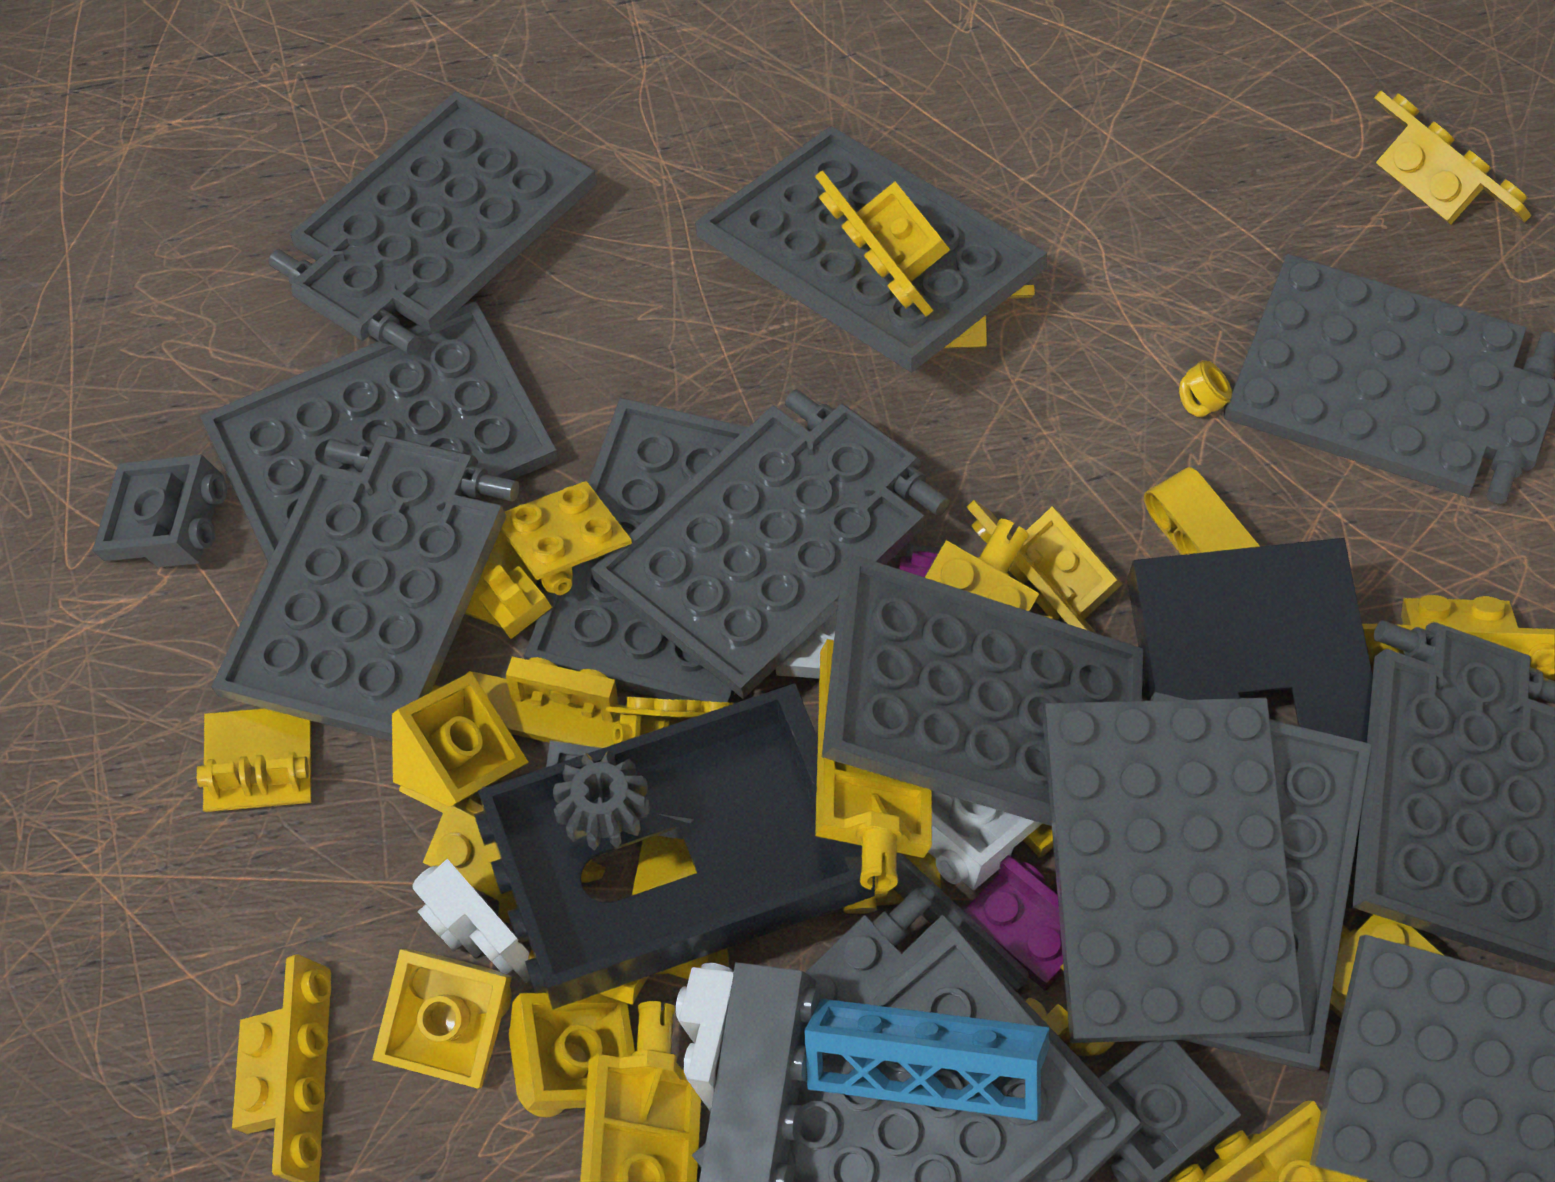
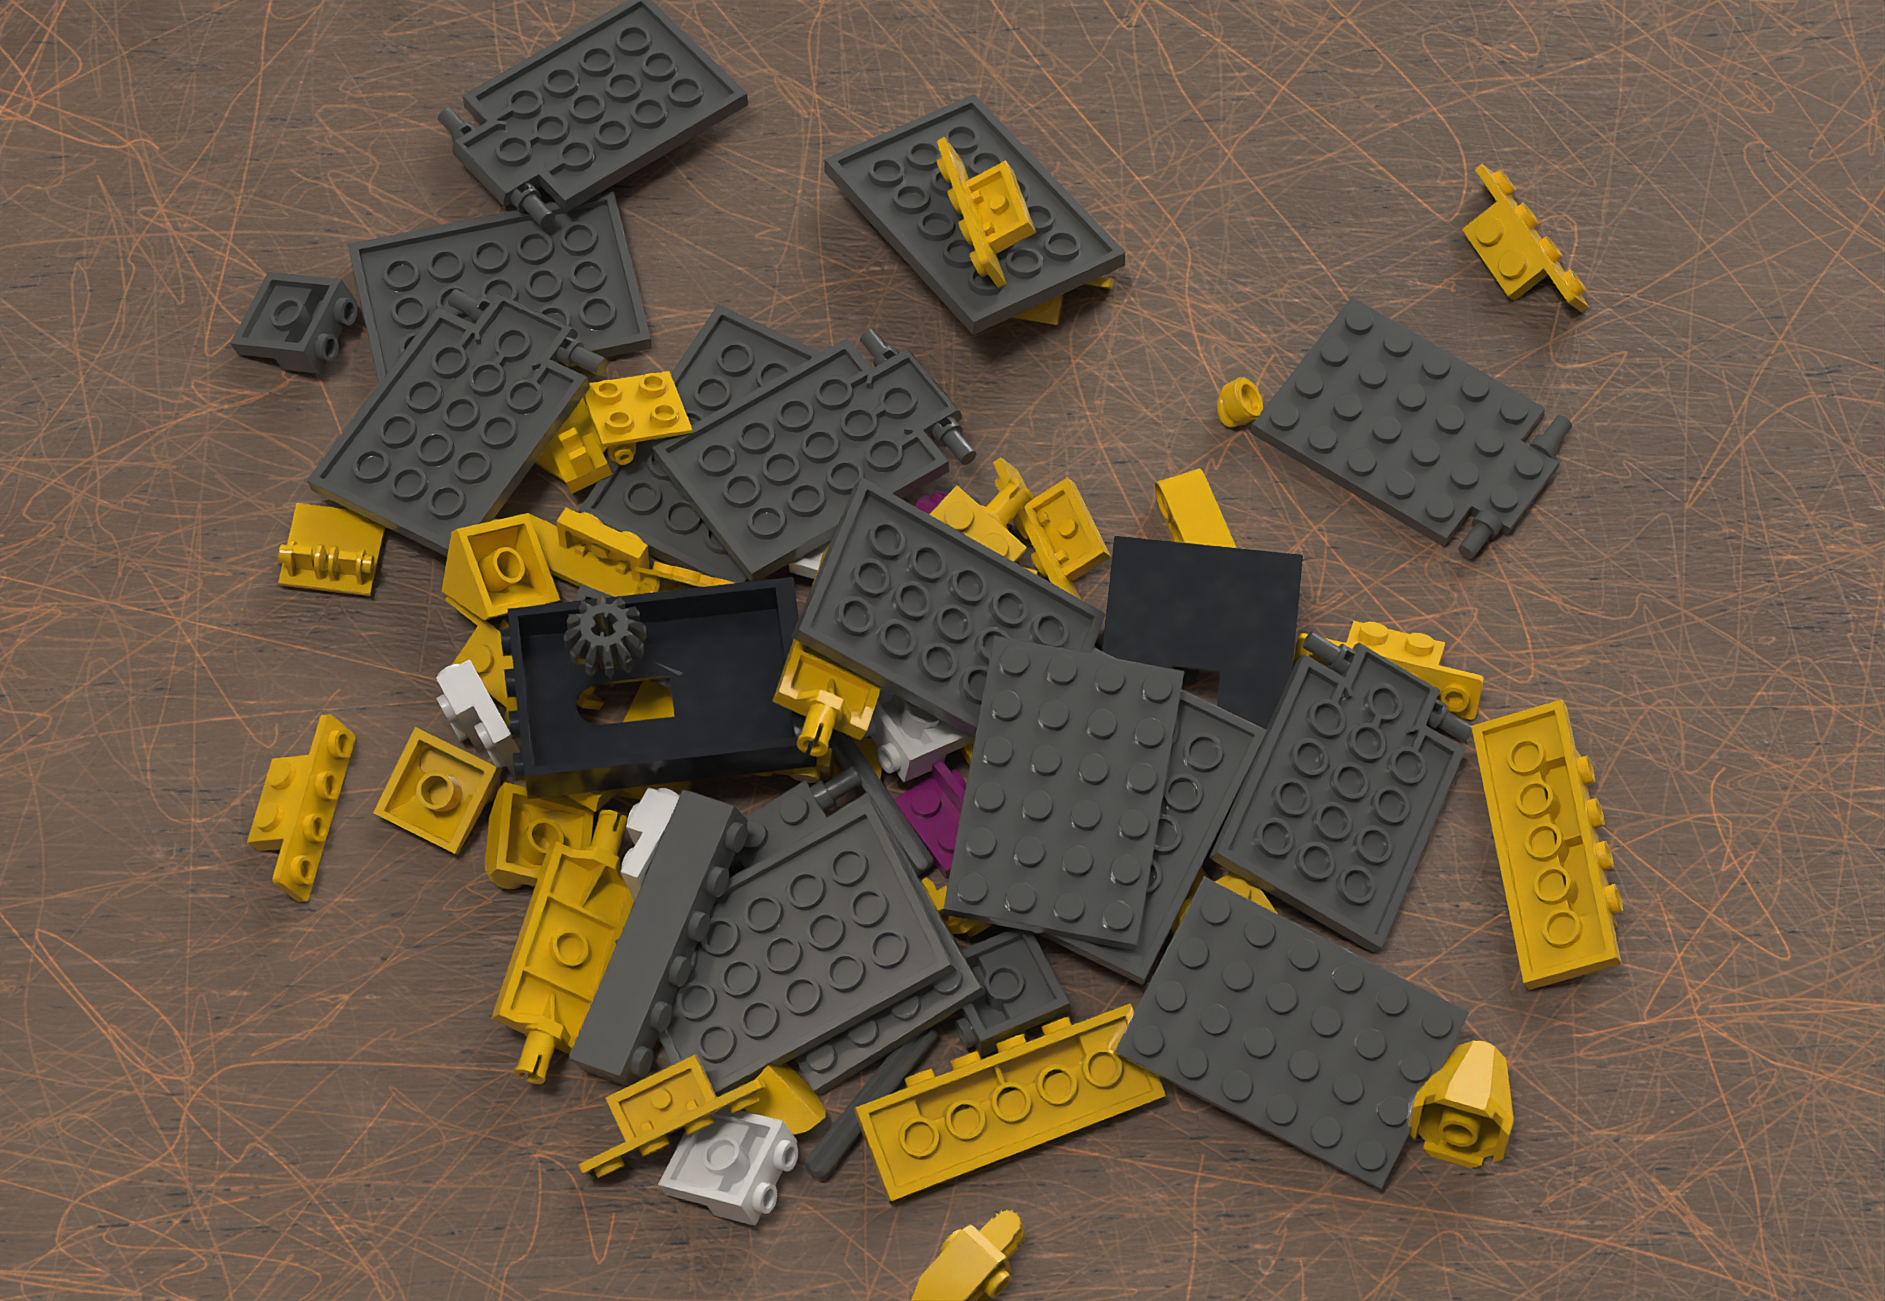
camera: 10 degrees right, 0 degrees up
(924, 1045) = (823, 882): dark azure fence -> none

